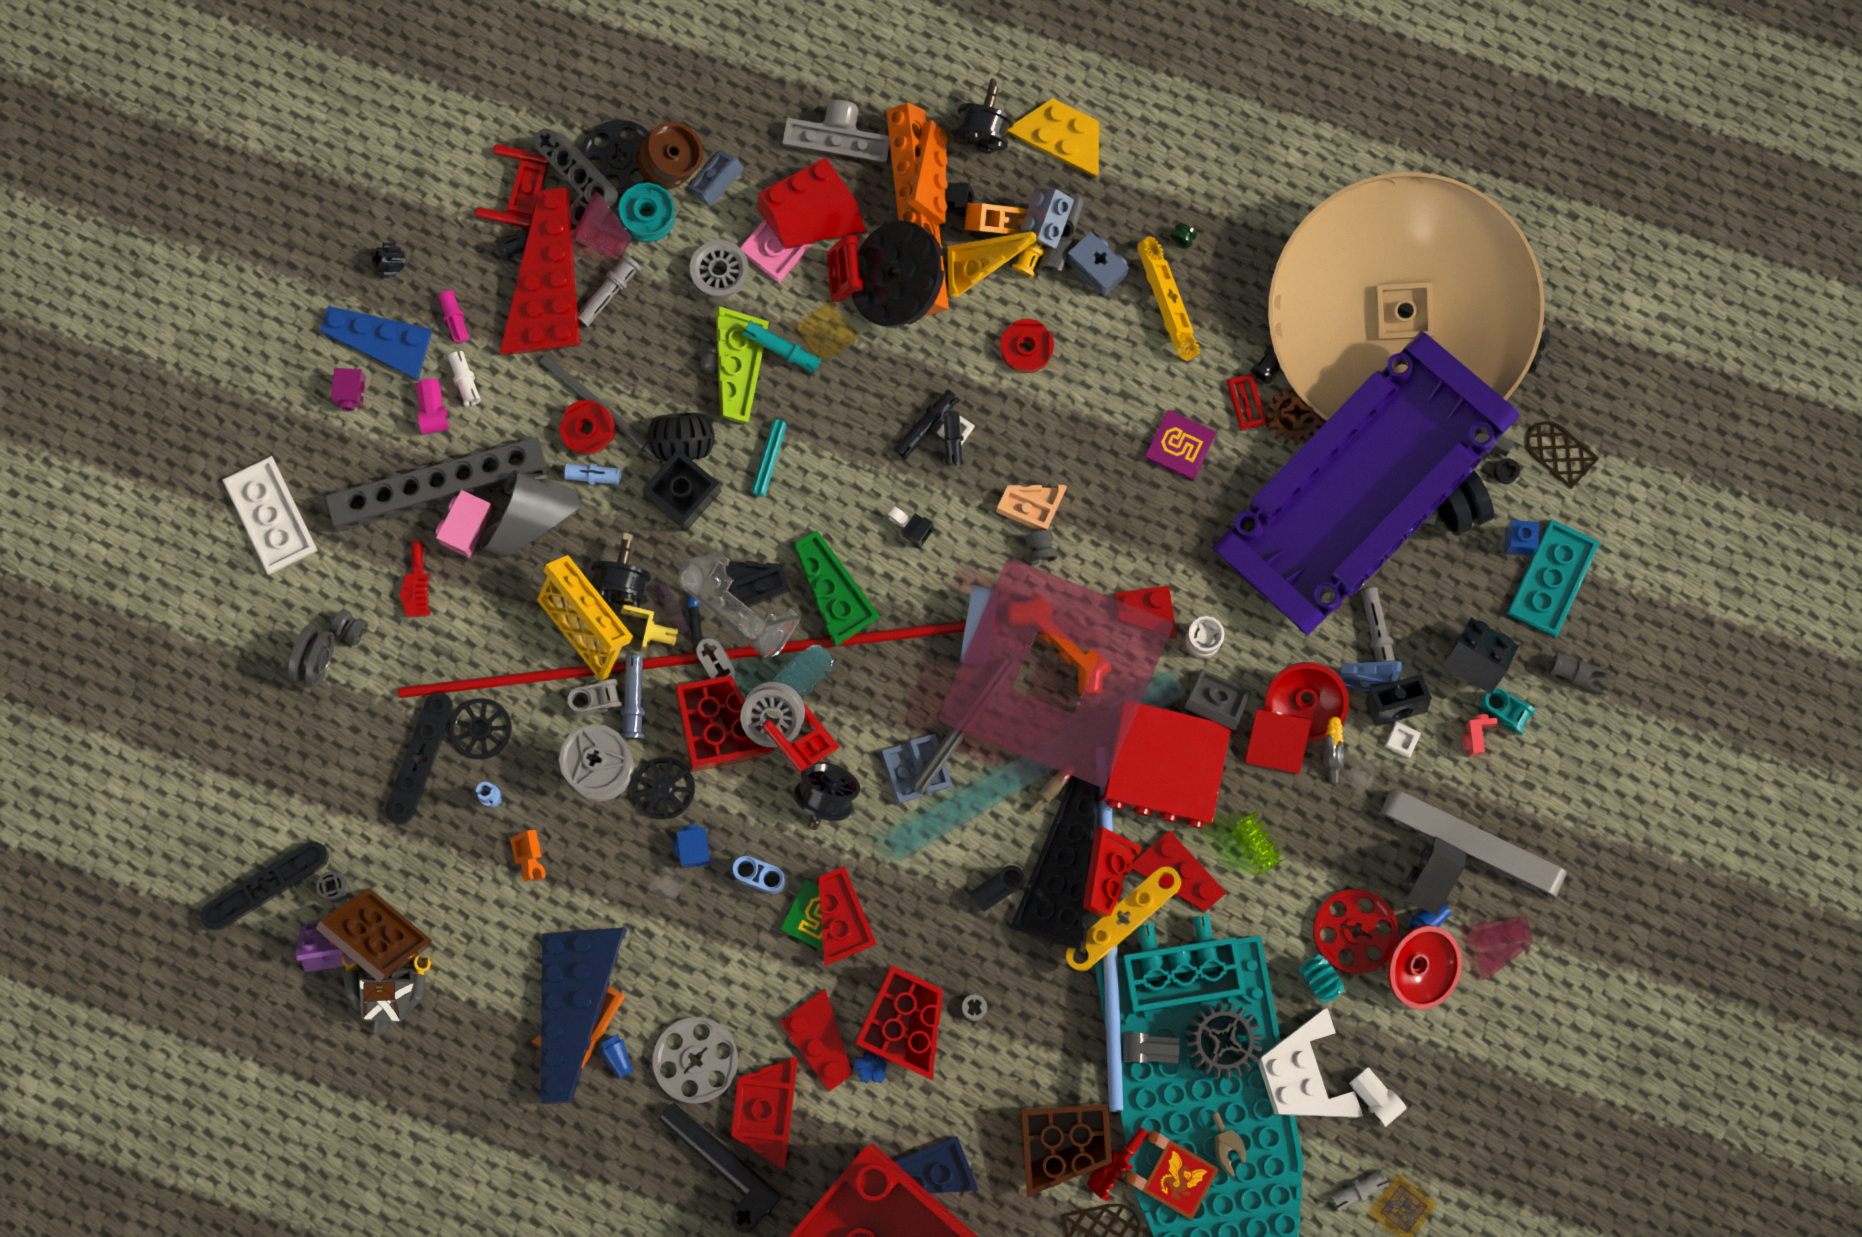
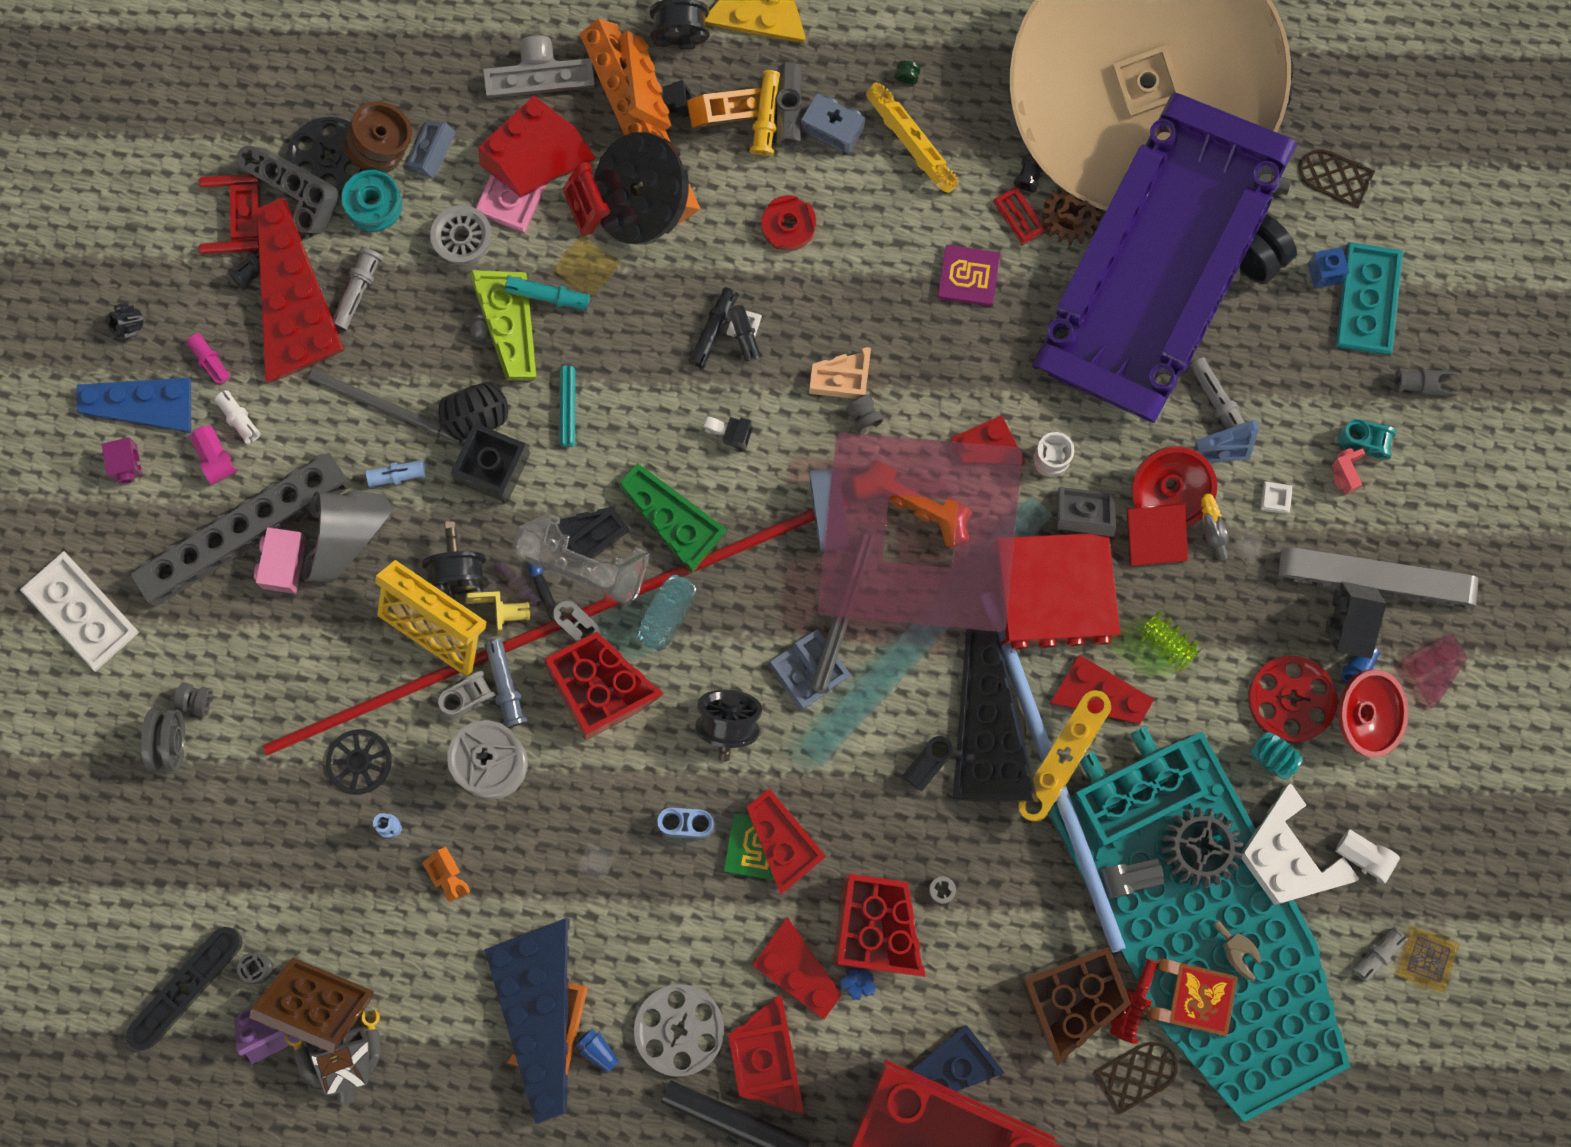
camera: 15 degrees left, 0 degrees up
(410, 784) = (304, 840): black piece -> none
(414, 589) = (249, 641): red piece -> none
(602, 229) = (332, 229): clear pink wing -> none
(602, 429) = (360, 426): red plate -> none
(663, 788) = (562, 765): black wheel -> none
(692, 846) = (609, 815): blue brick -> none
(772, 690) = (668, 676): light grey wheel -> none
(809, 748) = (699, 679): red plate -> none
(975, 260) = (713, 153): yellow wing -> none
(1047, 215) = (769, 91): sand blue bracket -> none
(1050, 790) = (950, 650): dark tan hand -> none
(1107, 869) = (1033, 710): red wing -> none
(1398, 700) = (1262, 459): black brick -> none
(1481, 655) = (1328, 391): black brick -> none
(1511, 464) = (1292, 201): black bush -> none

